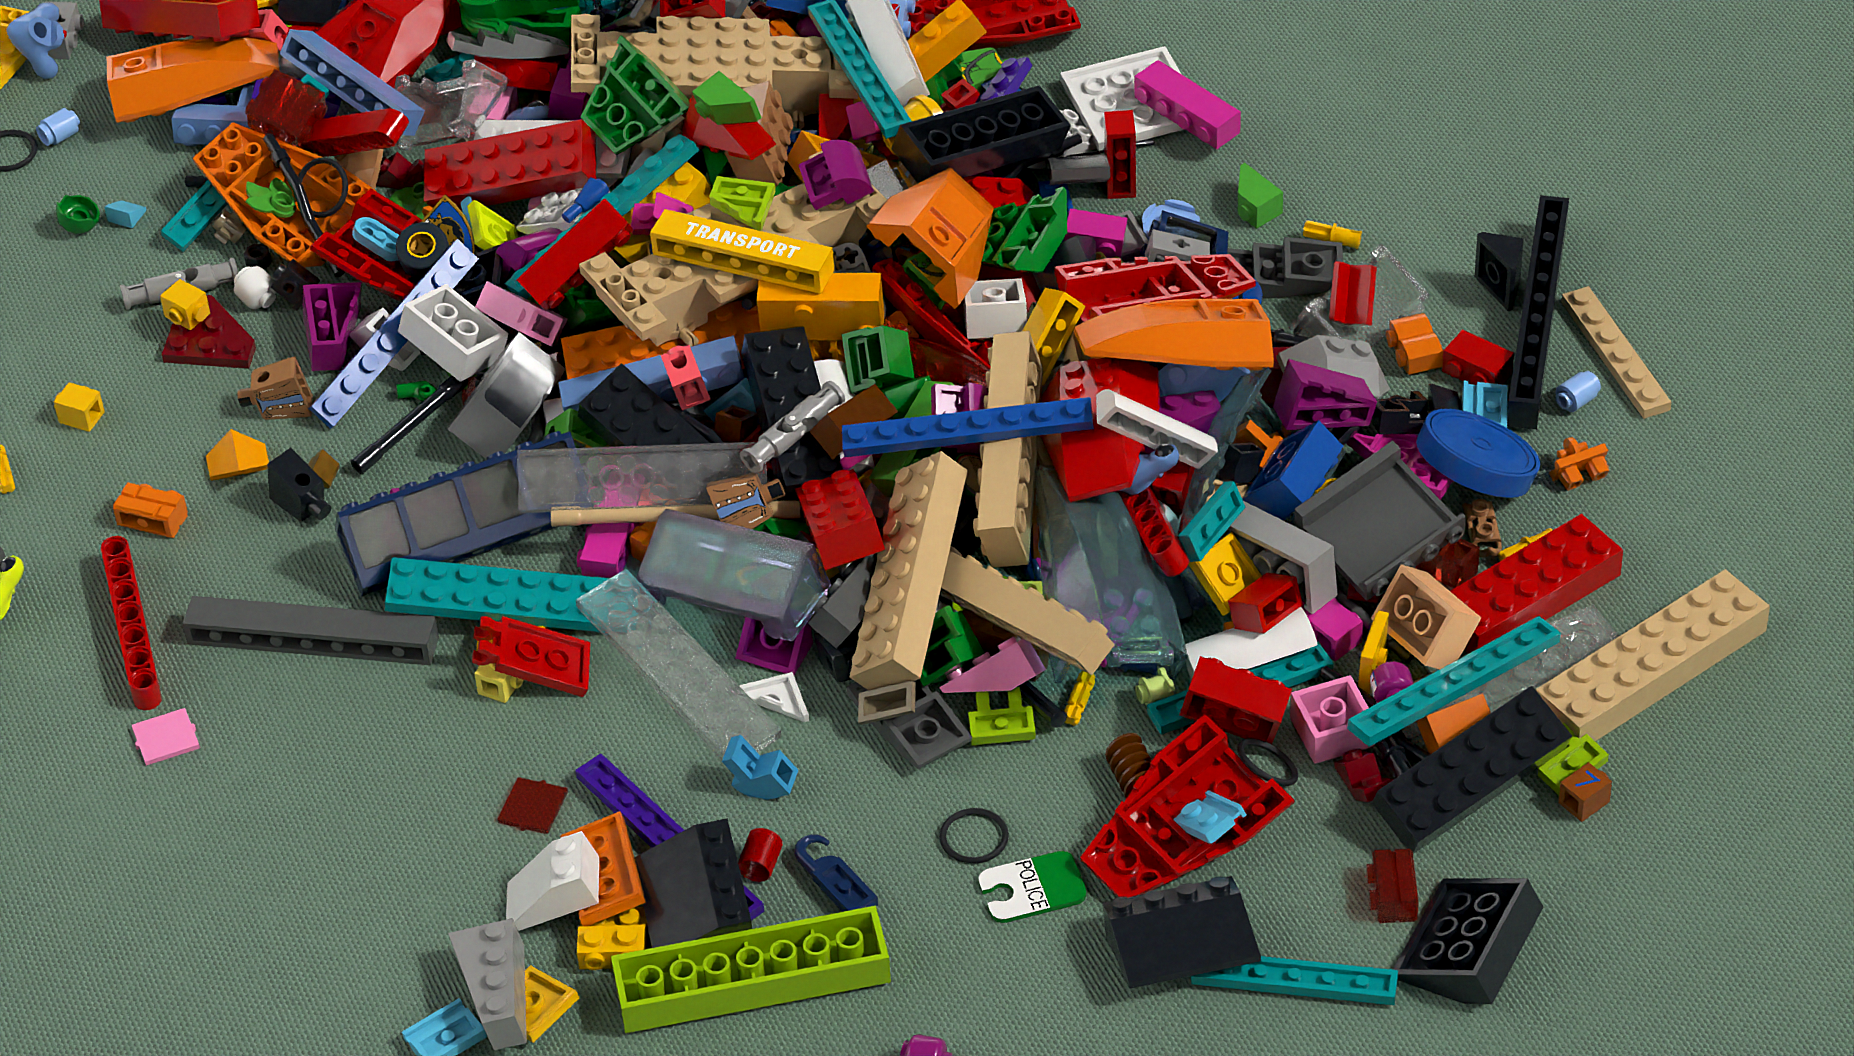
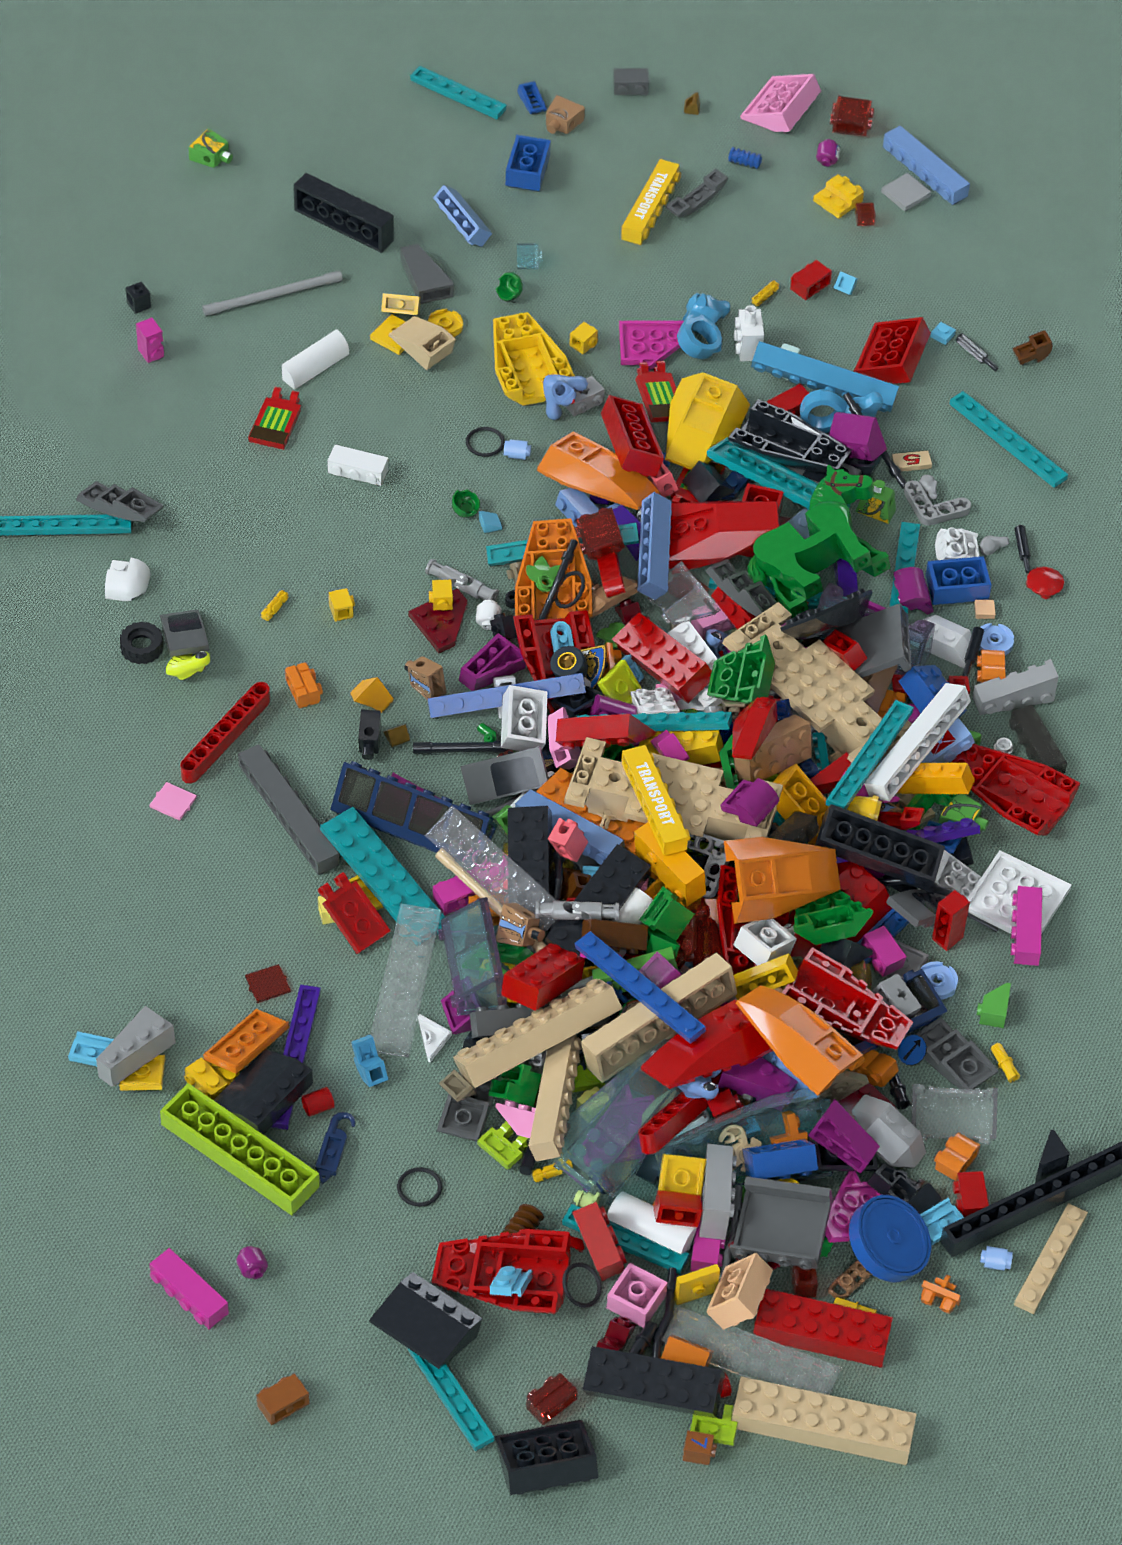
camera: 45 degrees right, 5 degrees up
(555, 882) = (216, 1028): white slope -> none
(587, 198) = (658, 706): blue cone -> none
(725, 101) = (753, 713): bright green slope -> none
(743, 199) = (695, 774): lime wing -> none
(1037, 884) = (413, 1239): piece -> none
(1153, 428) = (720, 1071): white brick -> none
(1212, 521) = (694, 1143): teal plate -> none
(1241, 462) = (763, 1130): black piece -> none
(1352, 294) = (954, 1099): red panel -> none
(1389, 679) = (681, 1306): magenta head -> none
(1453, 681) = (708, 1333): teal plate -> none

